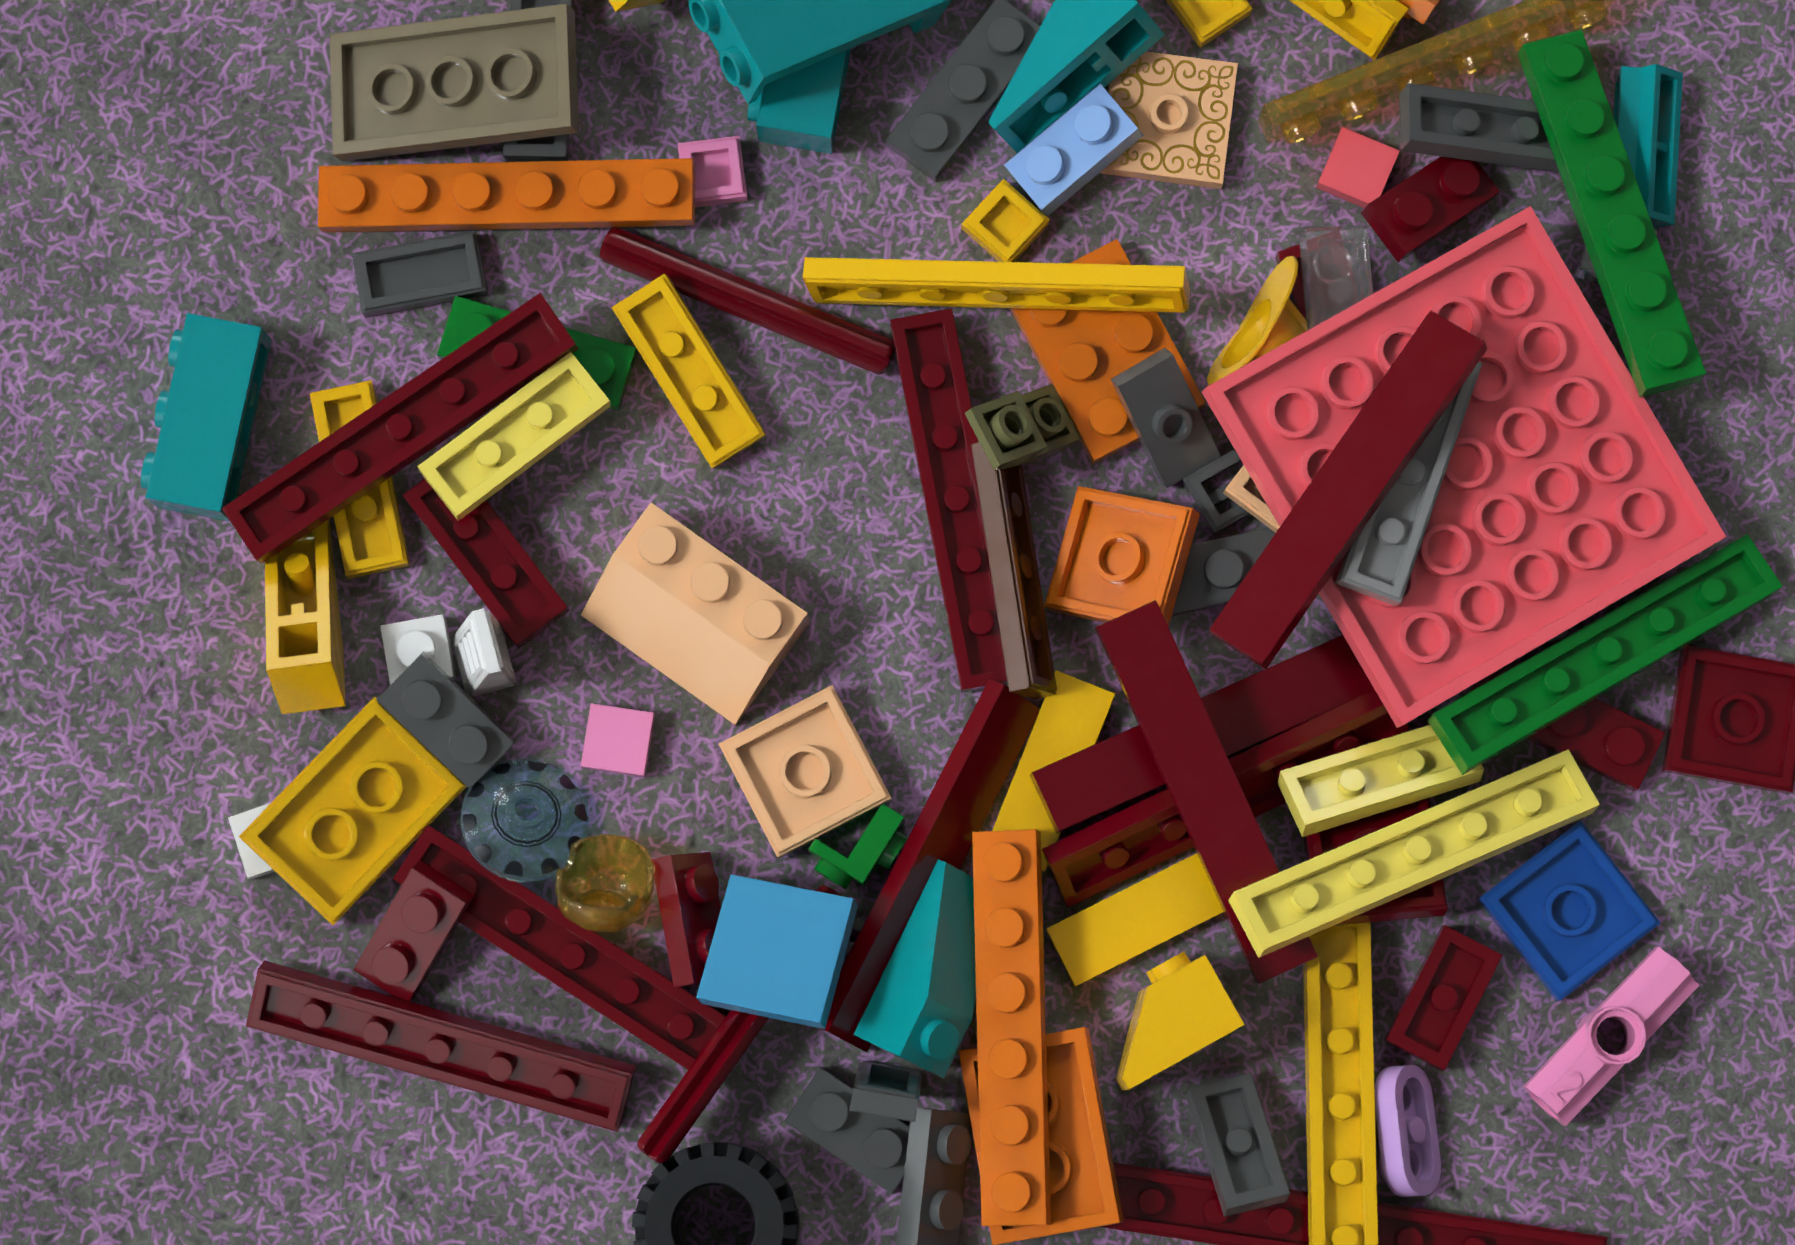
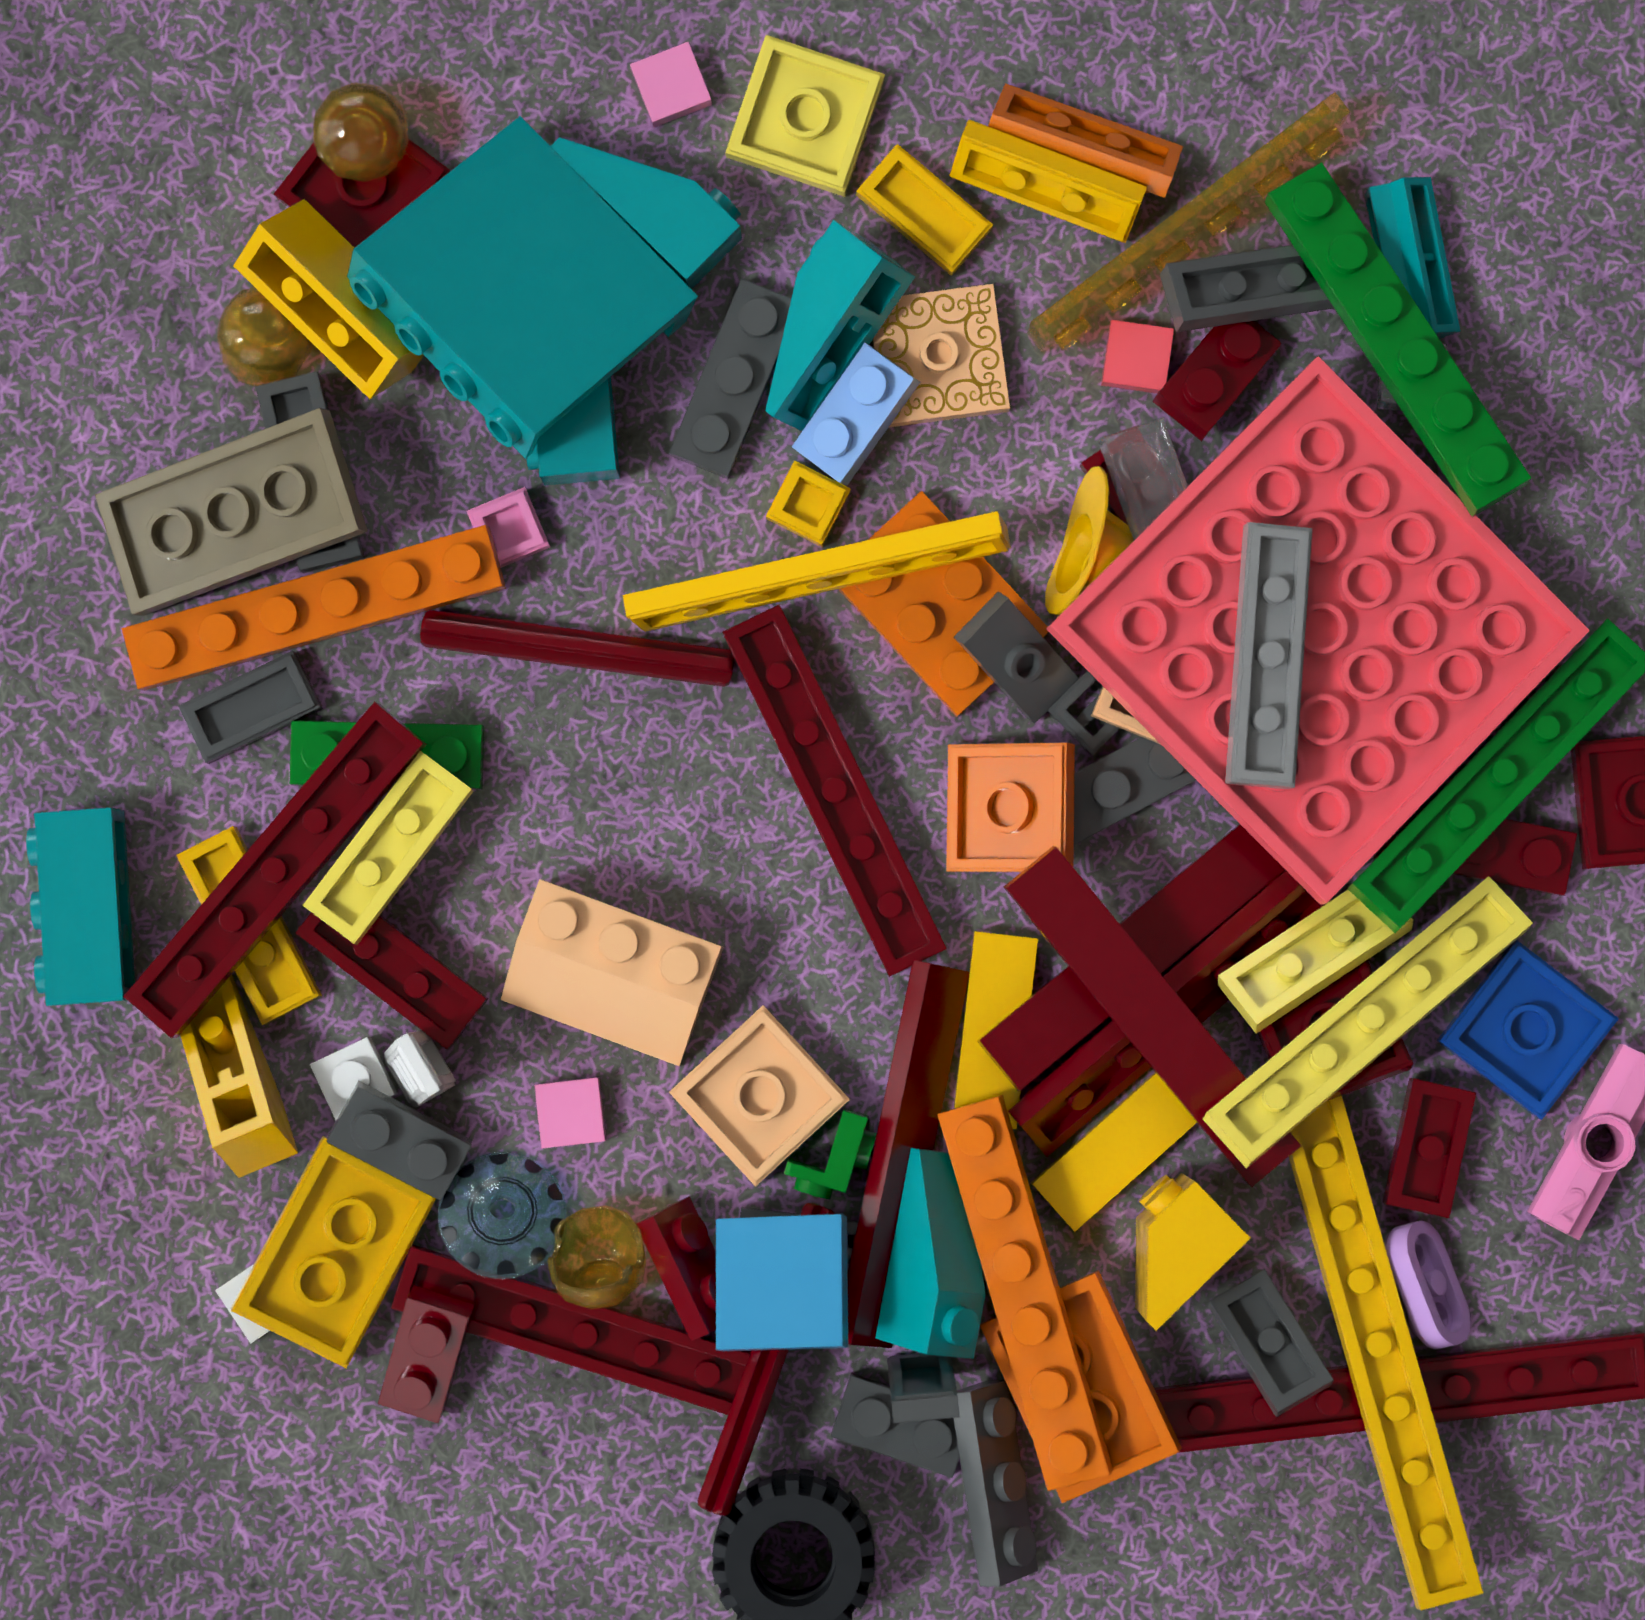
camera: 10 degrees left, 5 degrees up
(440, 1045) = (481, 1453): dark red tile -> none
(689, 371) = (540, 734): yellow tile -> none
(1015, 578) = (908, 846): reddish brown tile -> none
(1023, 427) = (880, 705): olive slope -> none
(1348, 489) = (1215, 690): dark red tile -> none

